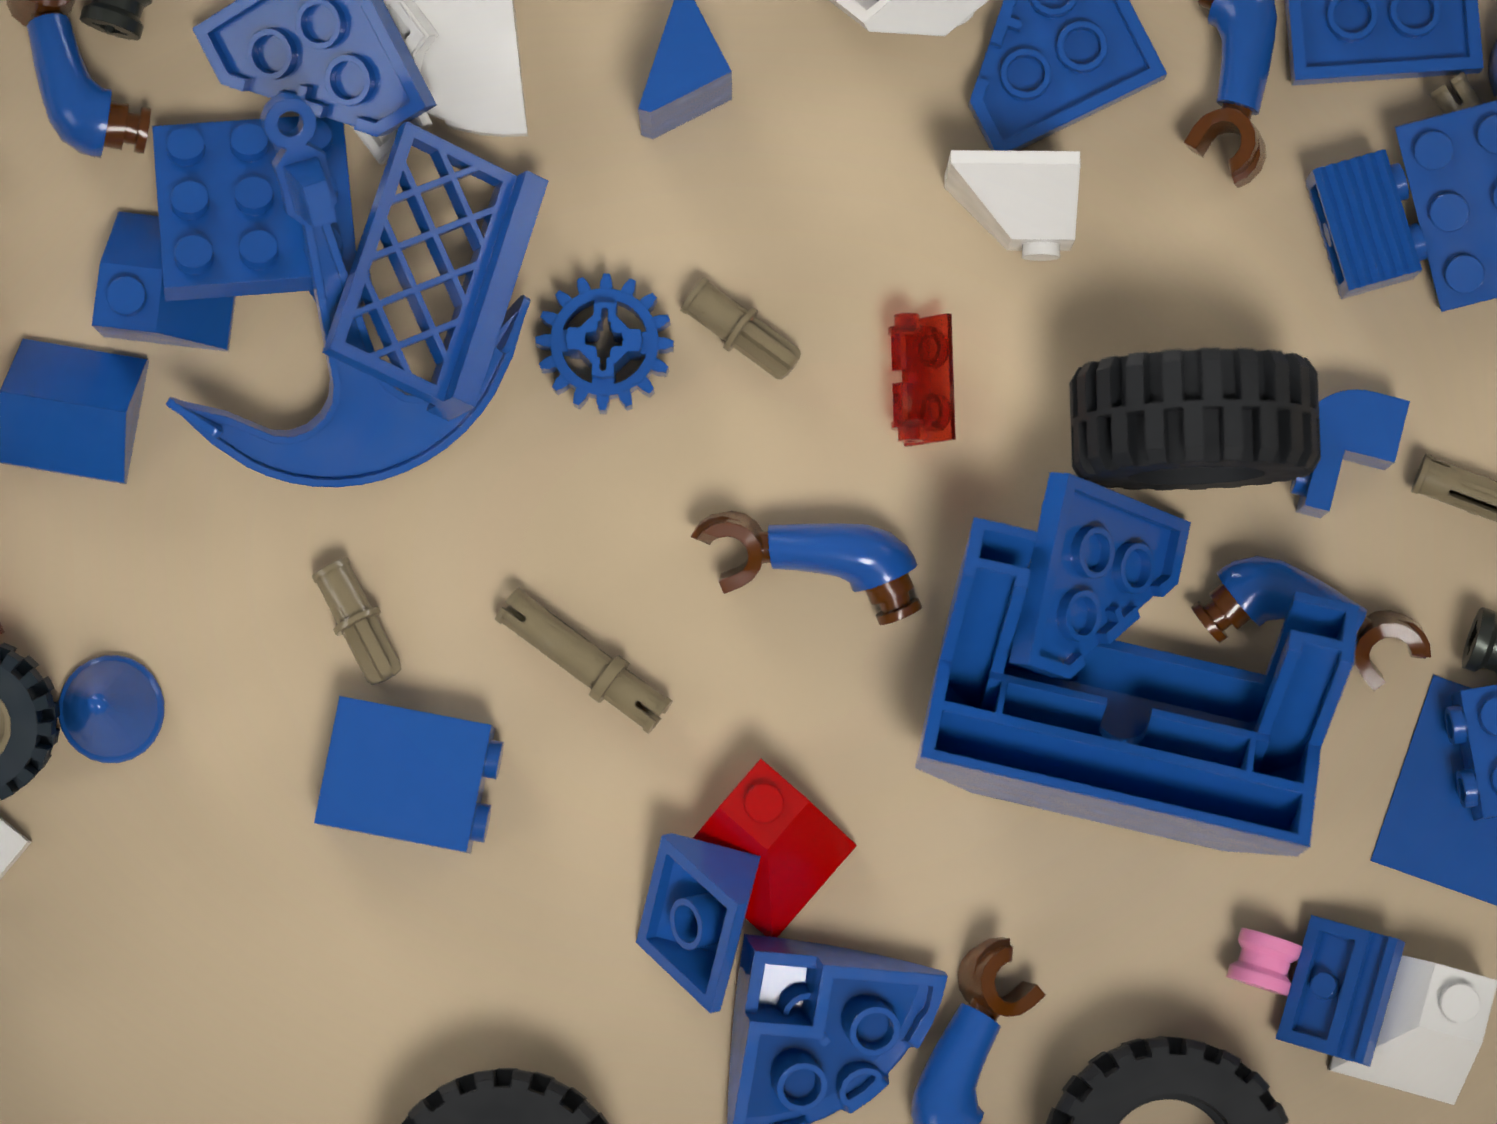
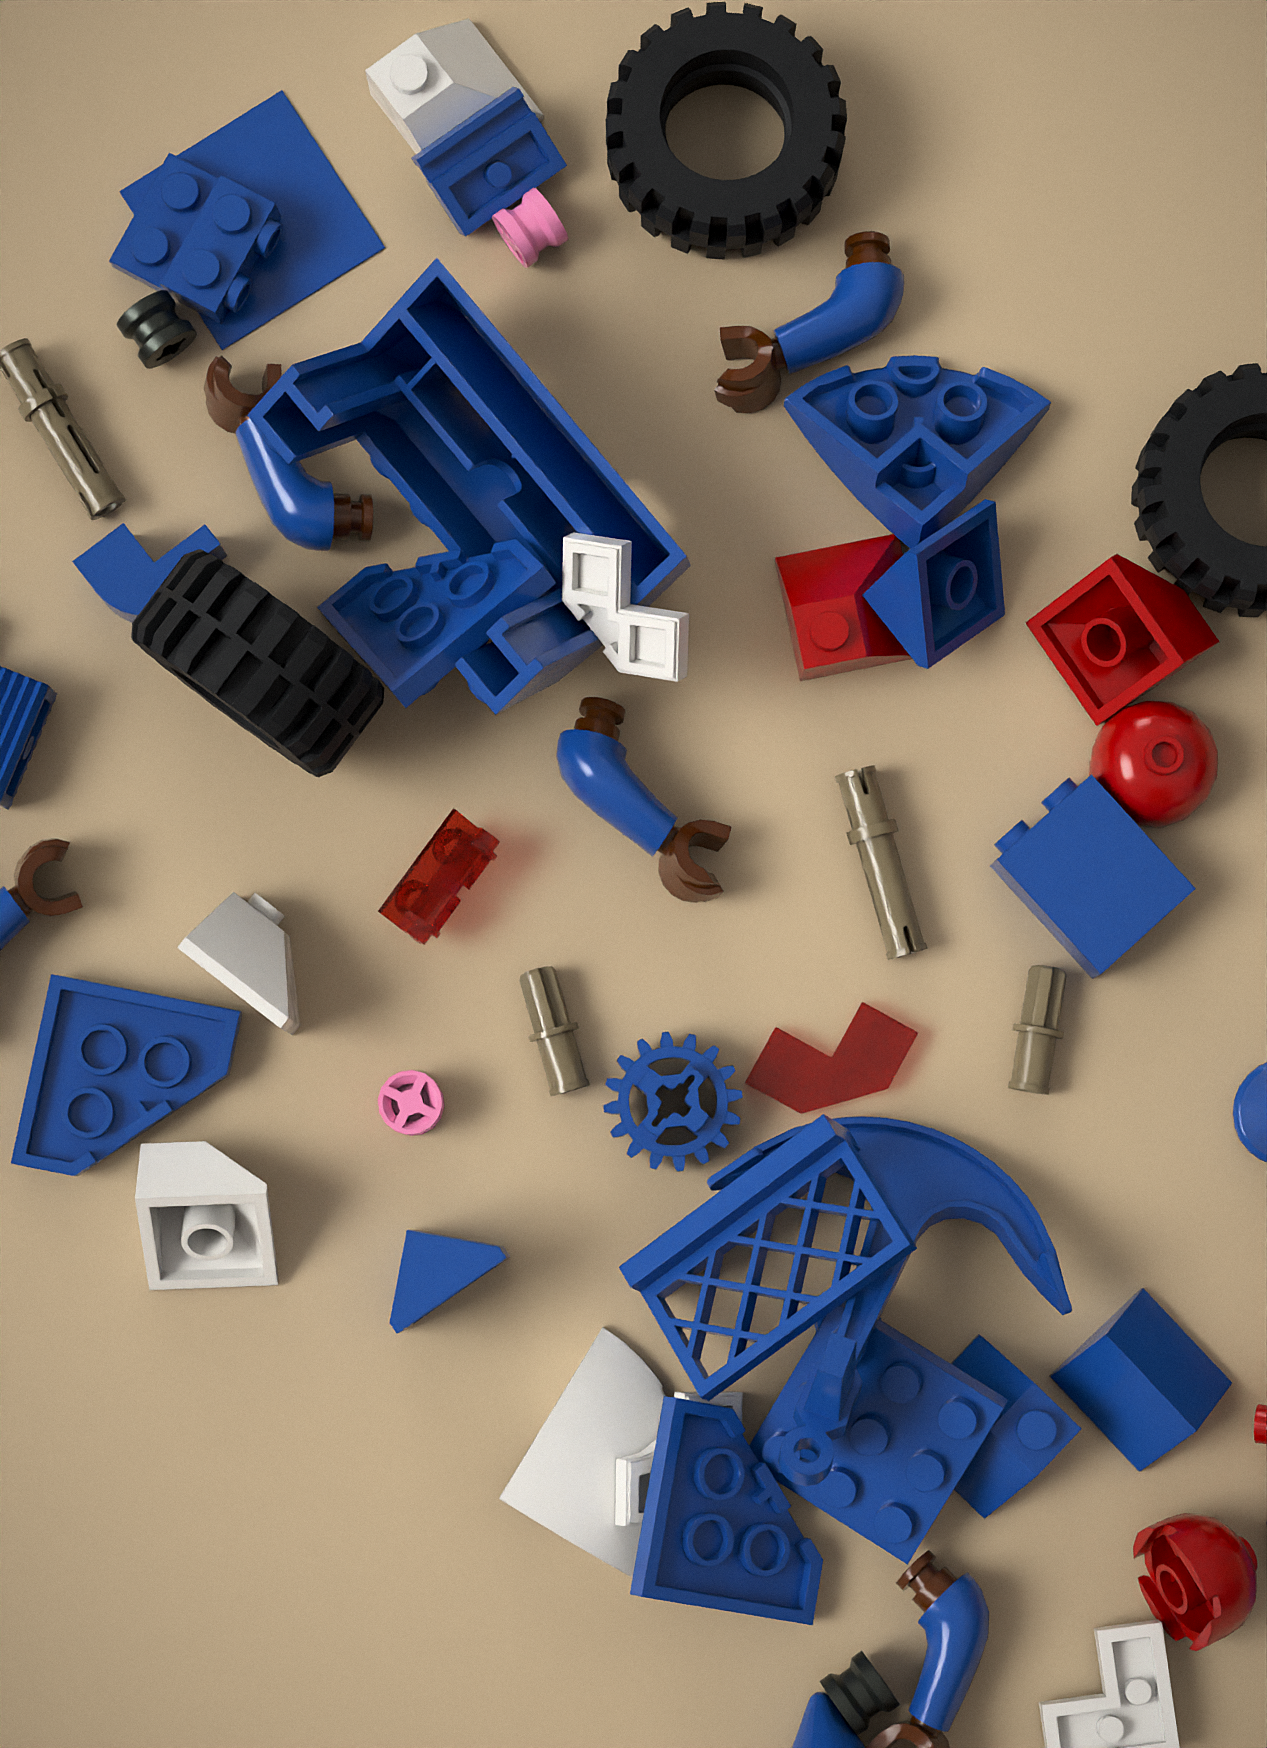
camera: 145 degrees left, 0 degrees up
(423, 909) = (1155, 762): none -> red cylinder
(509, 447) = (812, 1080): none -> clear red tile
(526, 990) = (1120, 635): none -> red slope
(808, 176) = (403, 1097): none -> bright pink wheel
(970, 685) = (599, 592): none -> white tile

